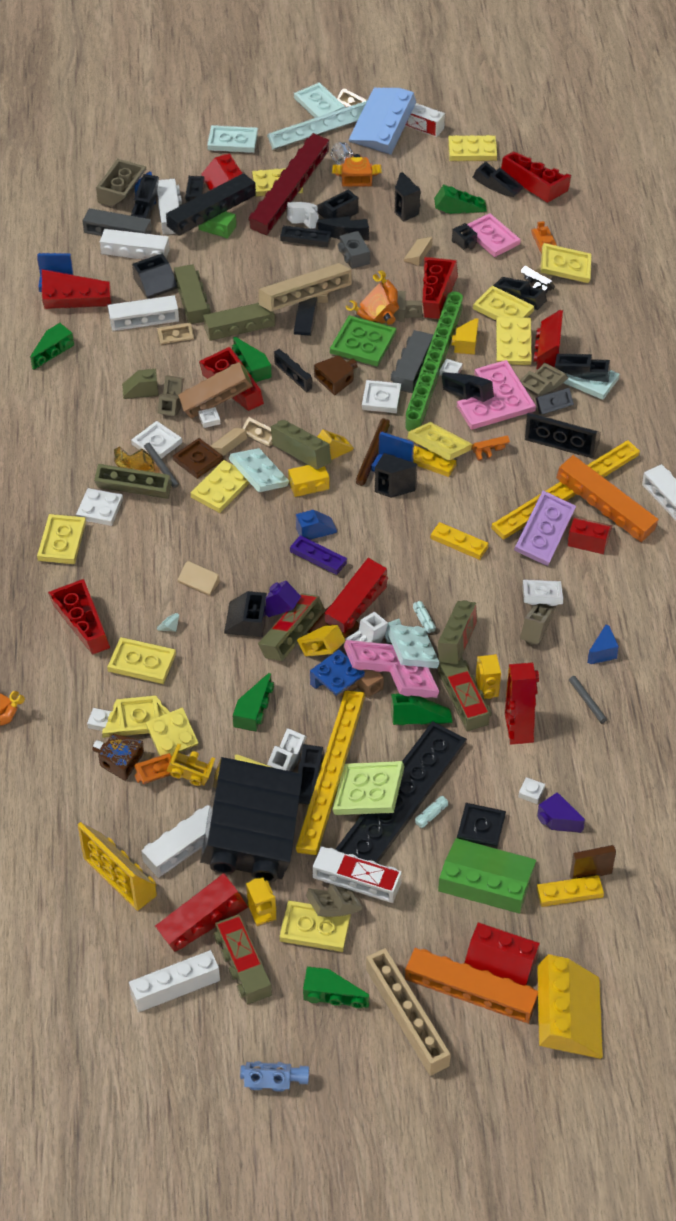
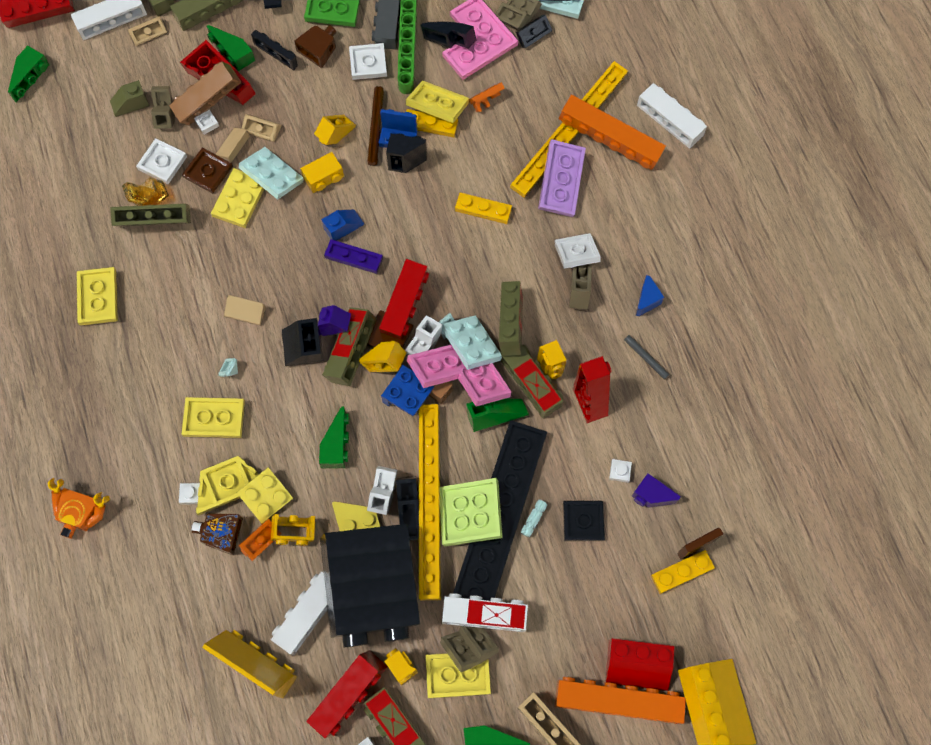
camera: 15 degrees left, 20 degrees up
(79, 612) = (138, 379): red wedge -> none
(100, 506) = (124, 249): white plate -> none
(160, 463) = (176, 191): dark grey bar -> none
(300, 444) = (305, 137): olive brick -> none
(424, 617) = (472, 302): light aqua axle -> none
(451, 367) = (426, 14): white plate -> none
(486, 875) = (603, 574): bright green slope -> none
(562, 435) = (551, 68): black slope -> none
(589, 535) = (604, 174): red slope -> none

